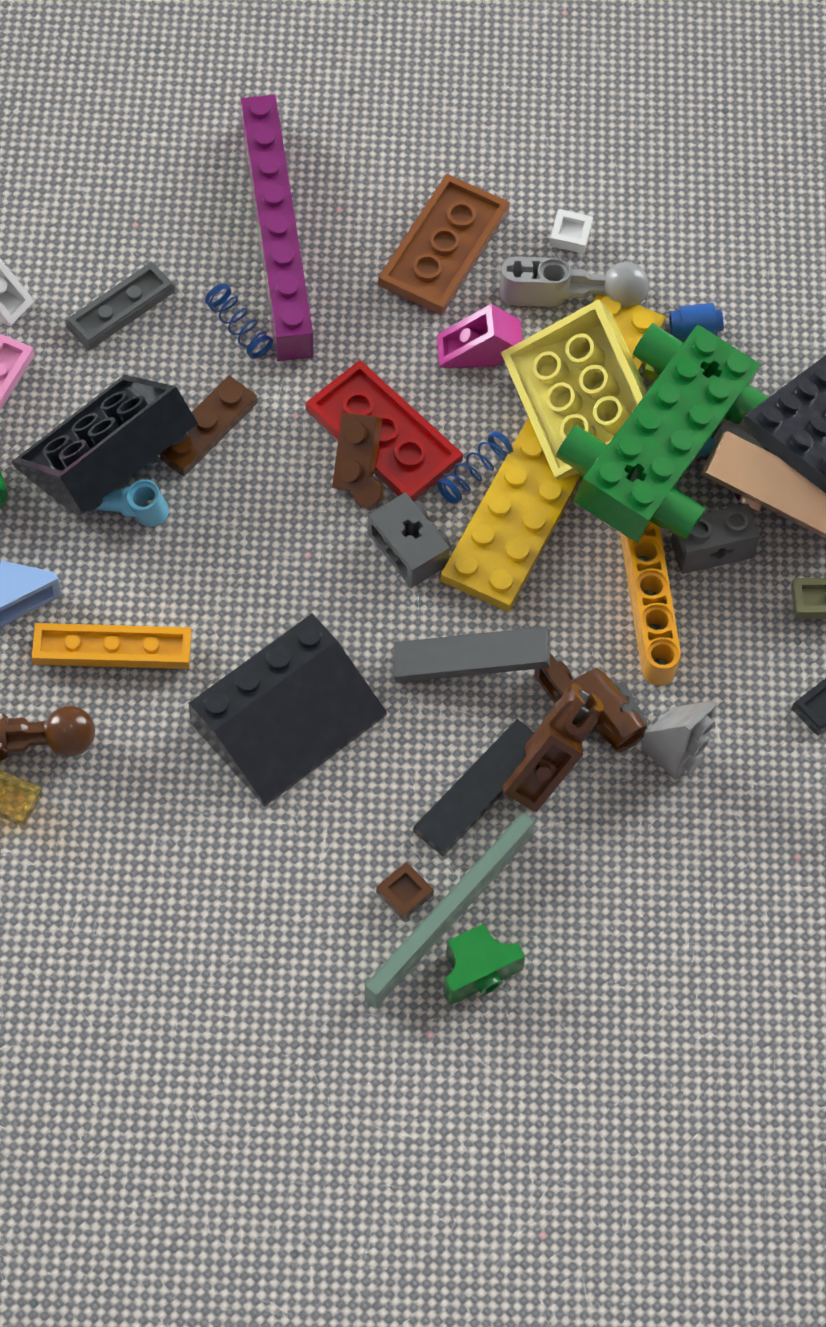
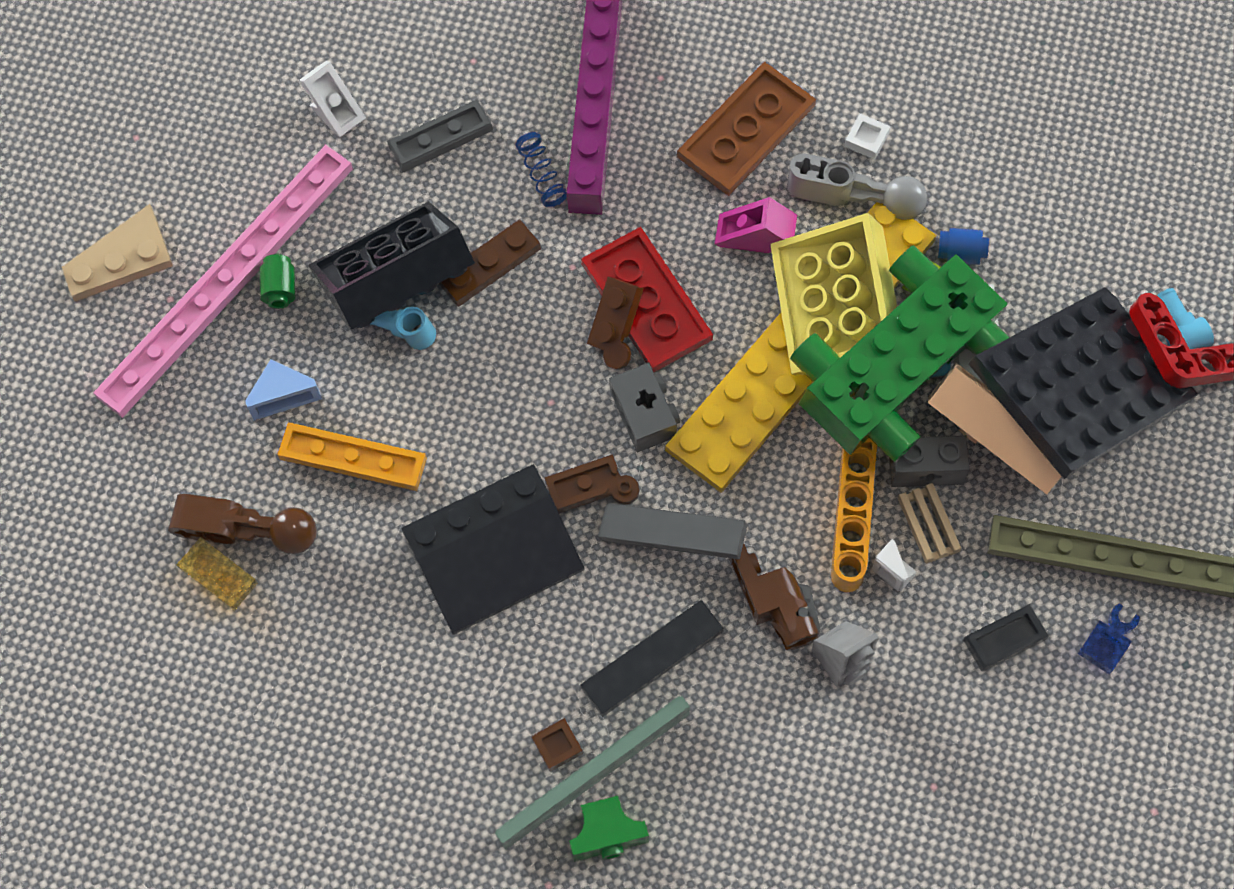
camera: 20 degrees right, 5 degrees up
(374, 625) = (591, 483): none -> reddish brown hinge
(493, 444) = (746, 324): blue piece -> none
(554, 748) = (725, 638): reddish brown plate -> none
(703, 649) = (892, 568): none -> white slope
(740, 592) = (918, 495): none -> tan tile

